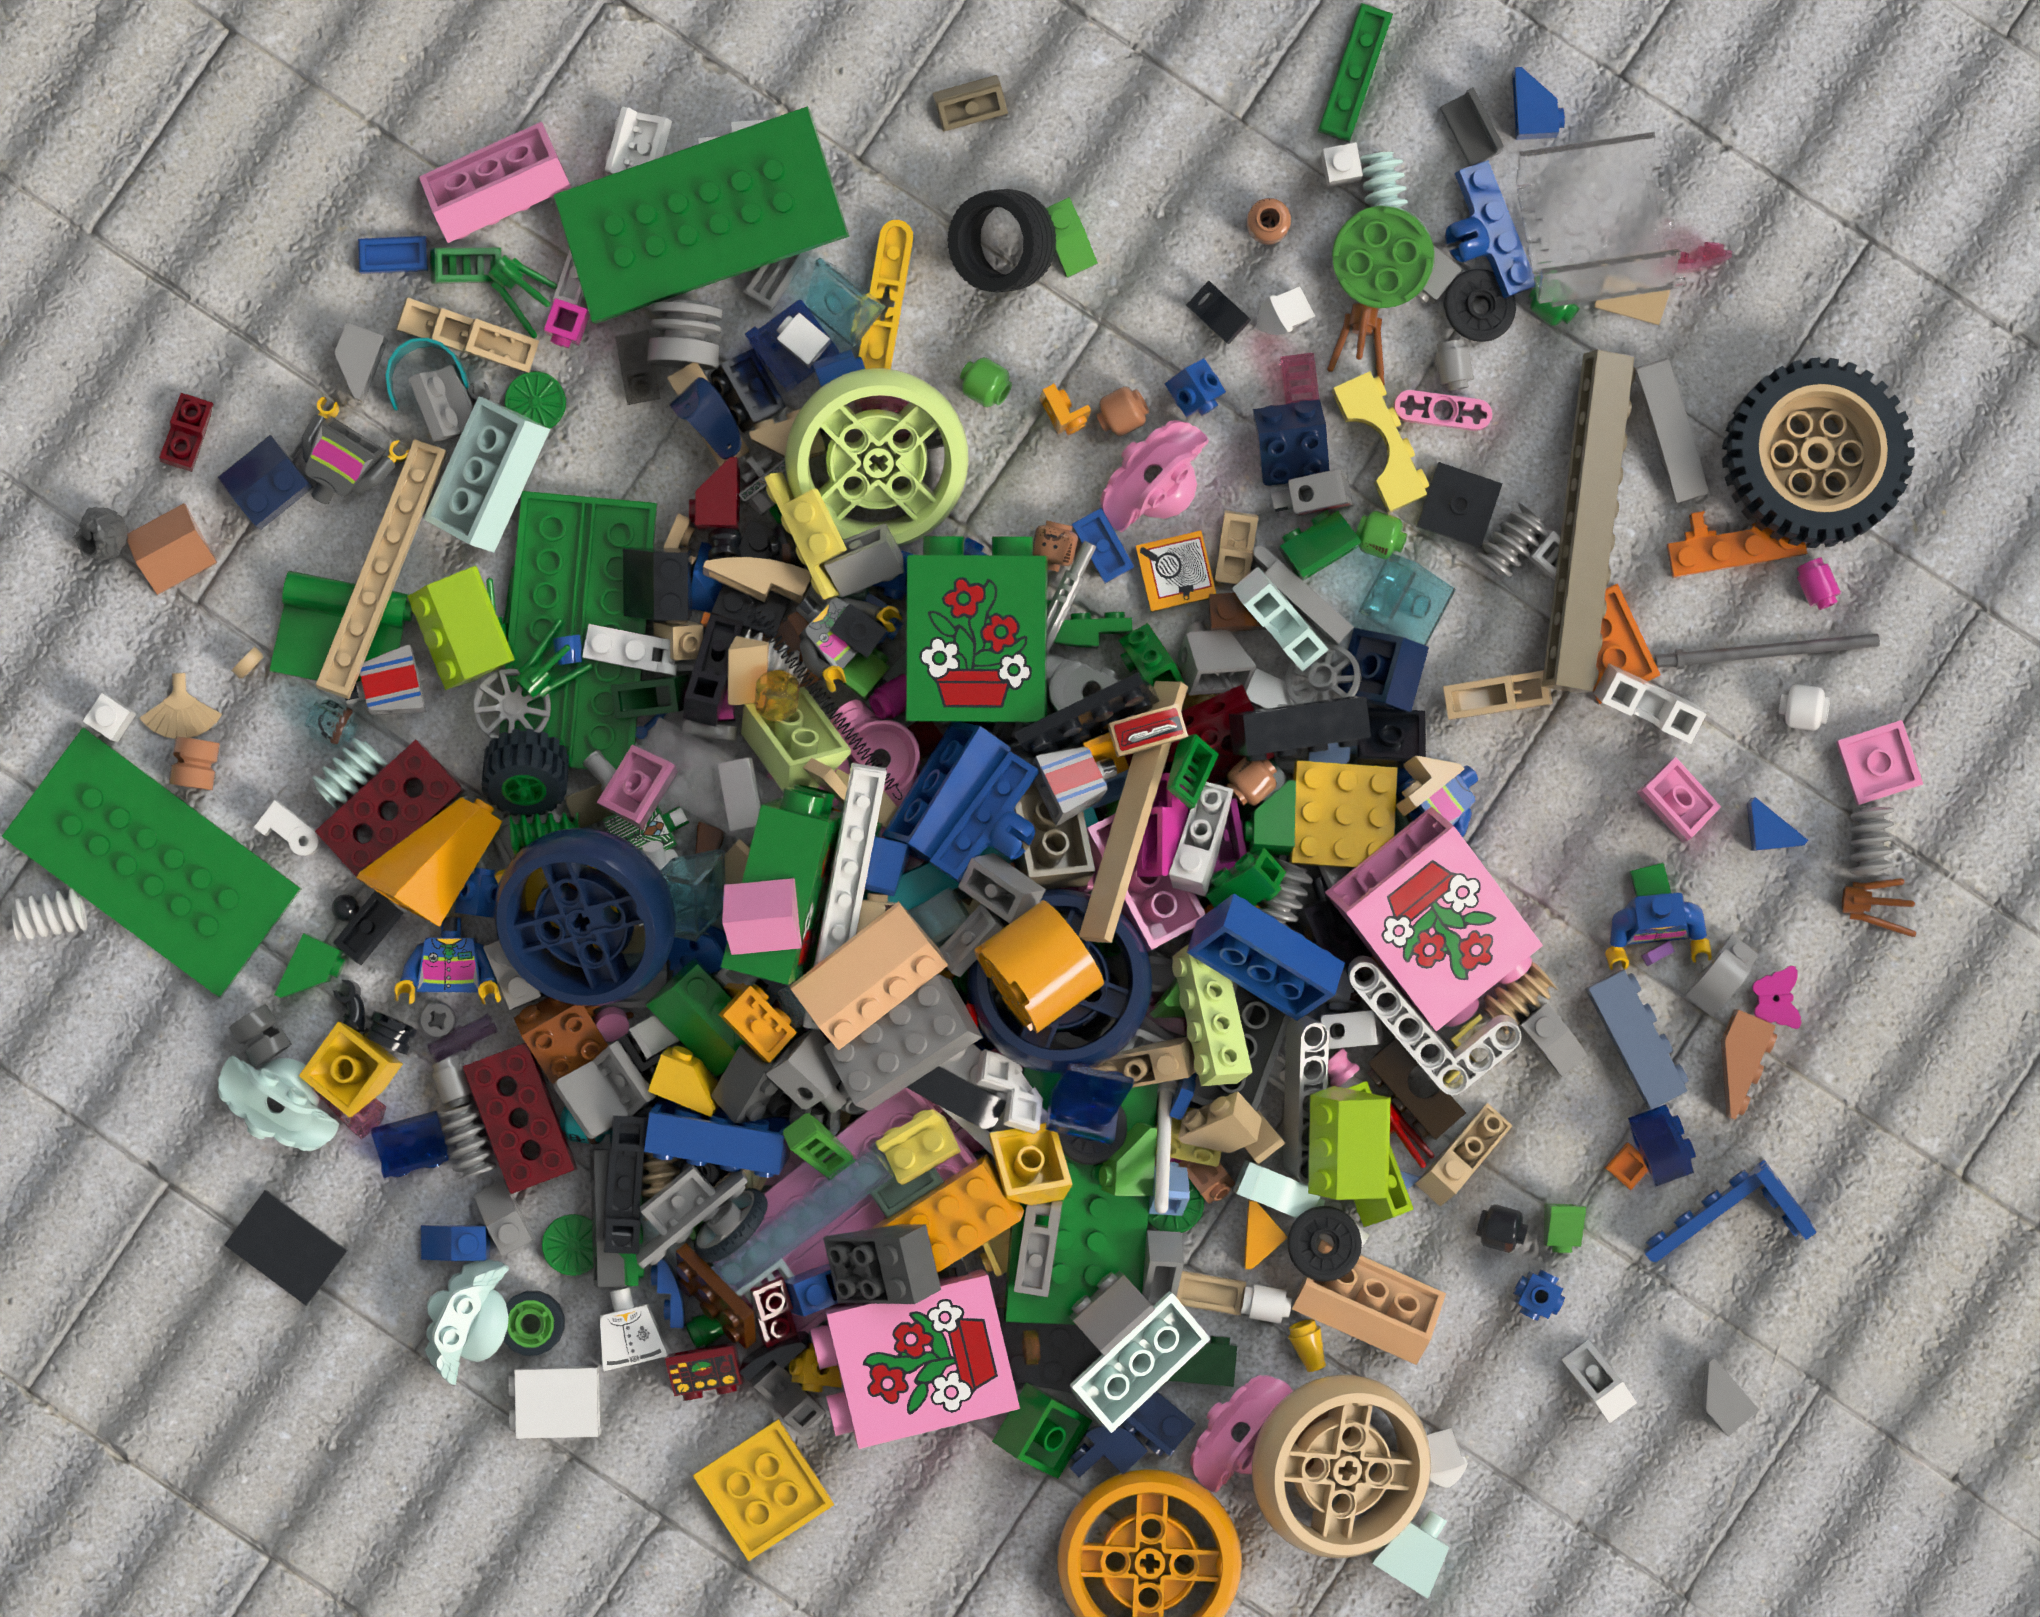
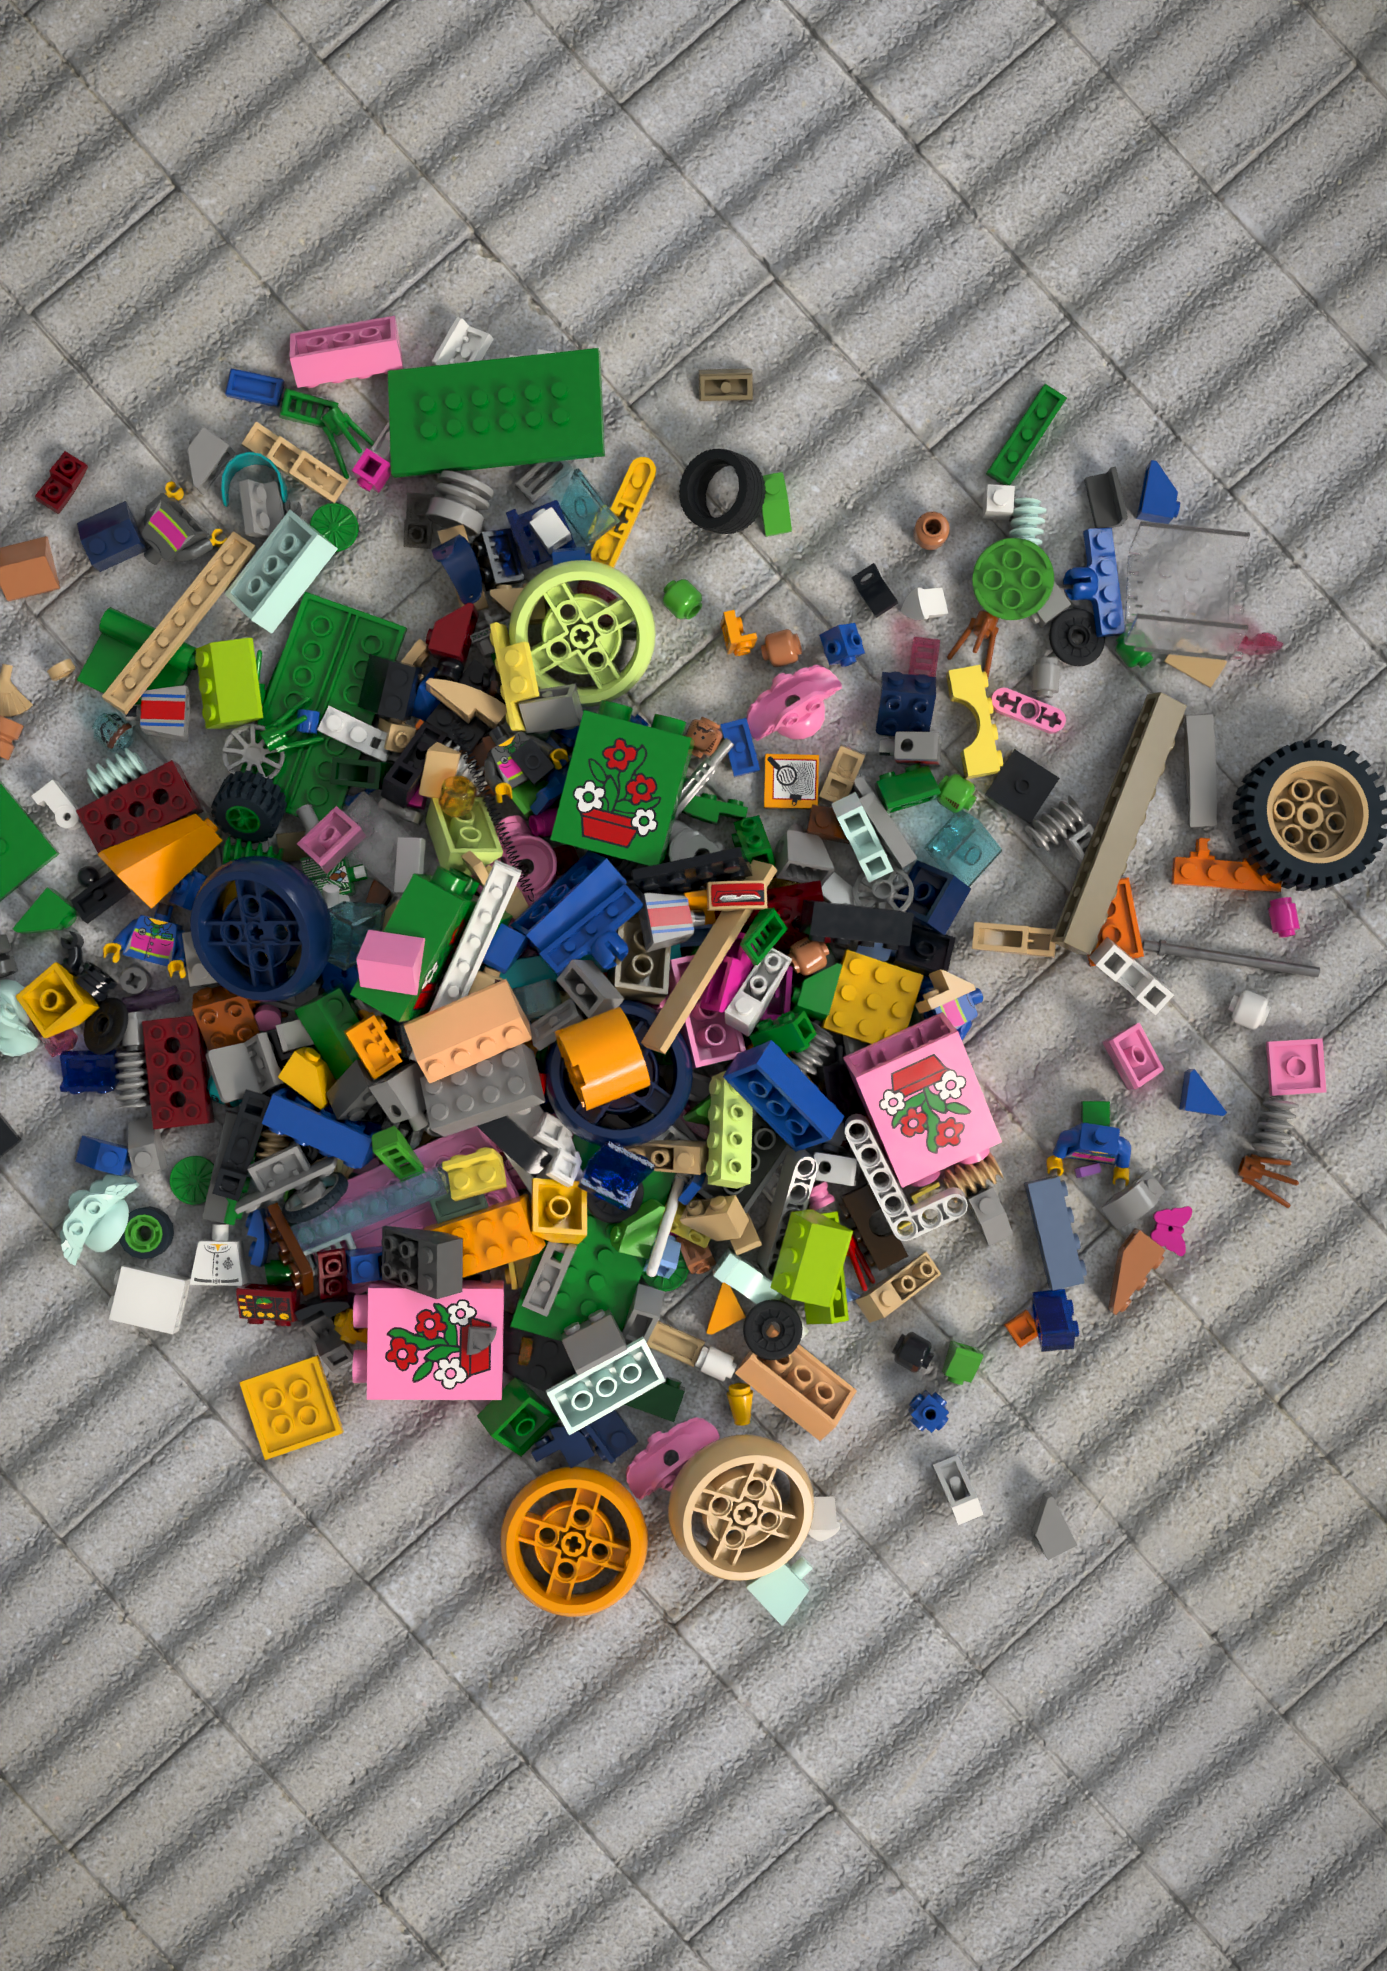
camera: 15 degrees right, 0 degrees up
(432, 1072) = (117, 1016): none -> black wheel
(893, 653) = (549, 795): none -> blue slope
(975, 1340) = (479, 1338): none -> flat silver tile
(1716, 1204) = (1087, 1376): blue bracket -> none

